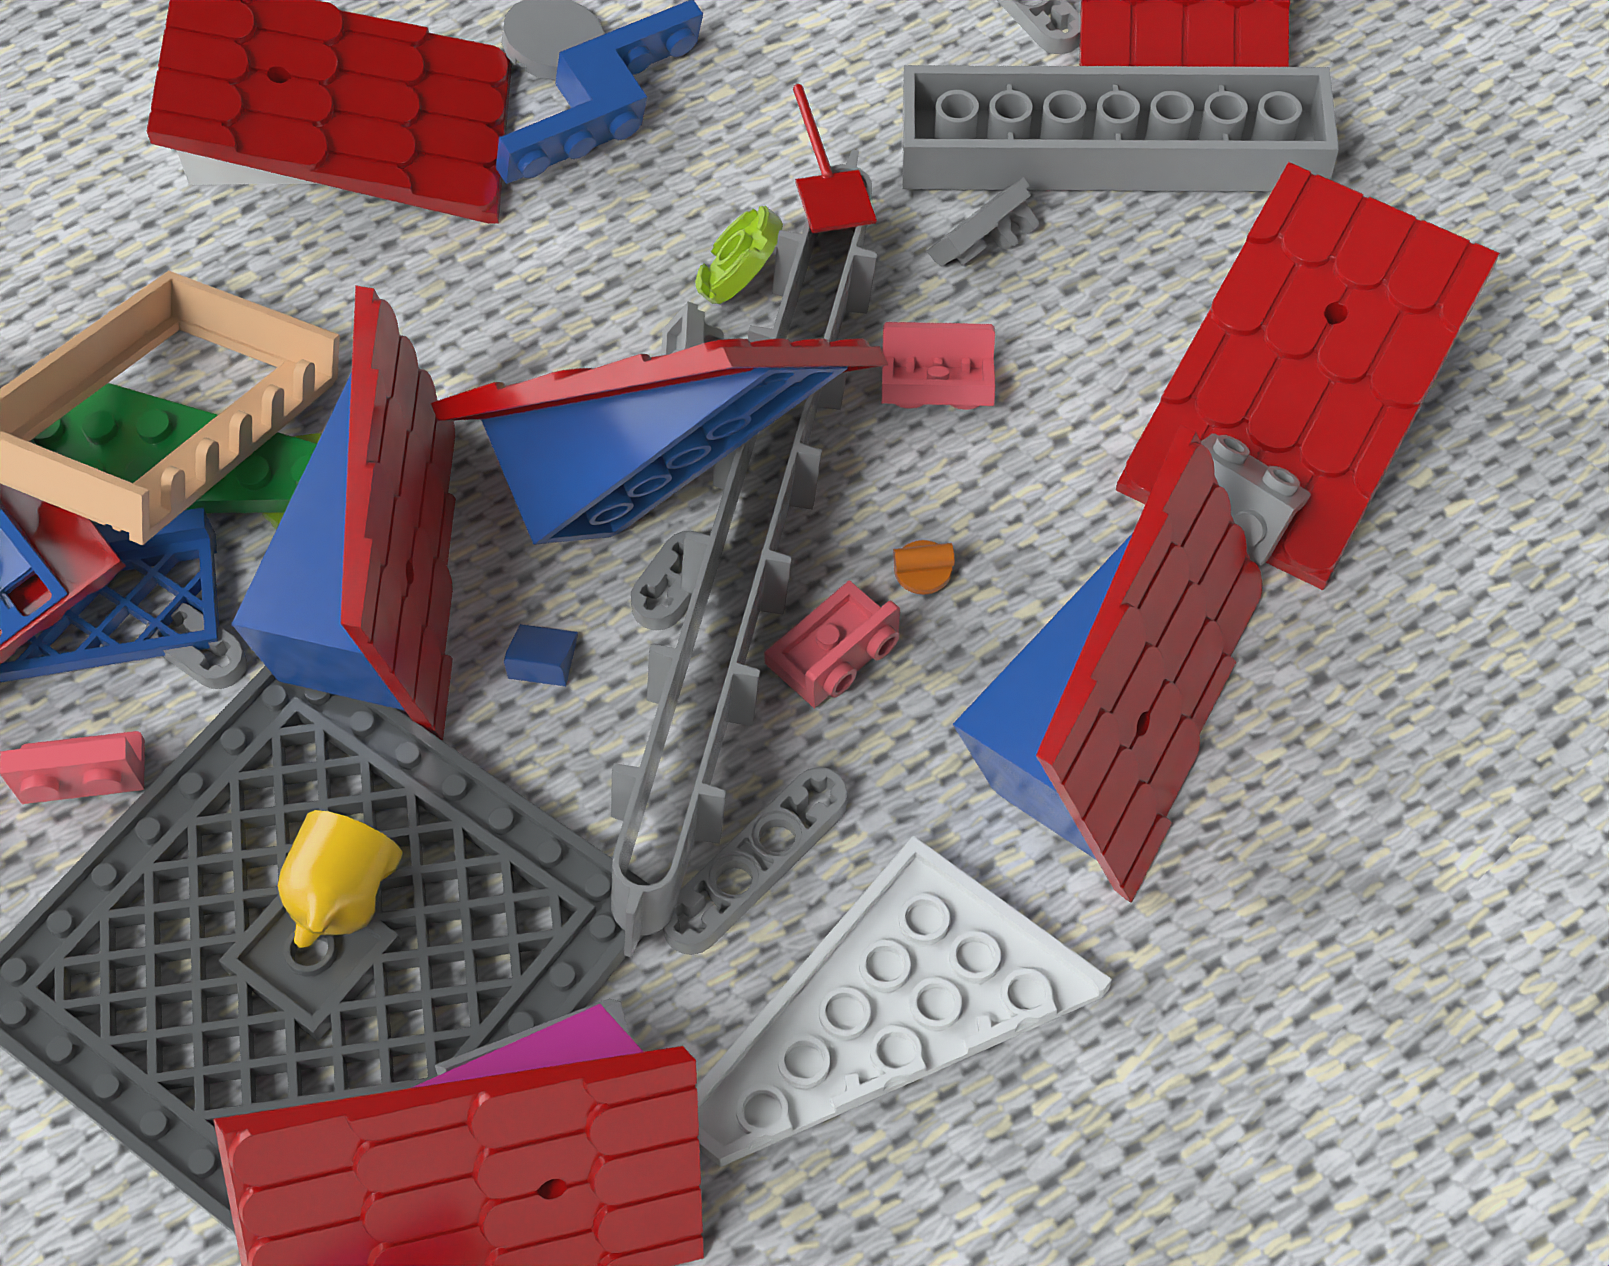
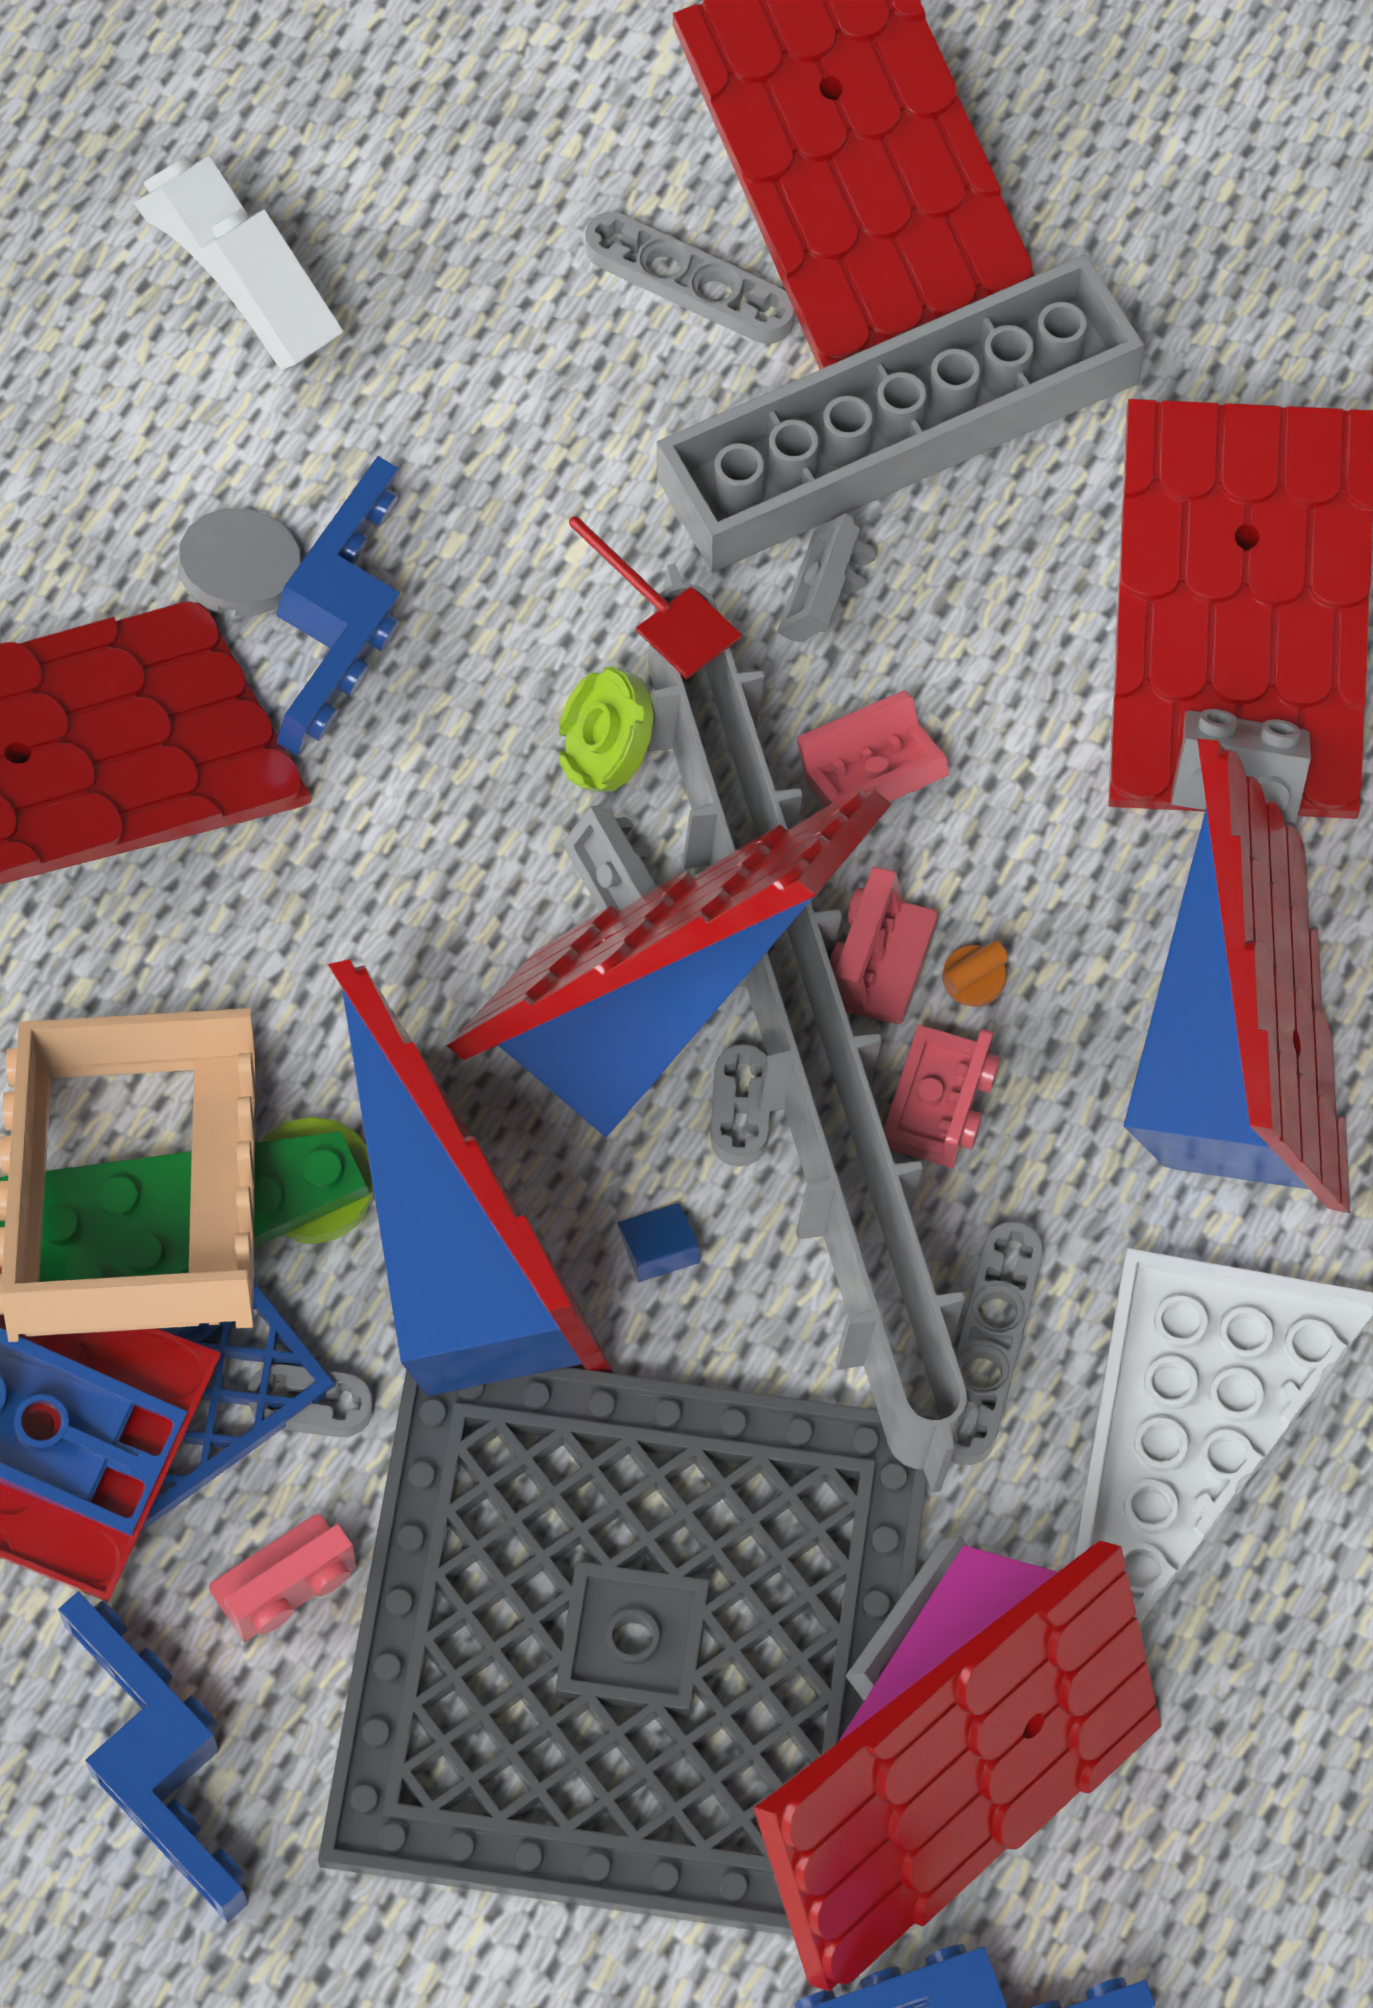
camera: 30 degrees left, 5 degrees up
(334, 875) = (632, 1554): yellow piece -> none
(854, 508) = (882, 950): none -> coral bracket

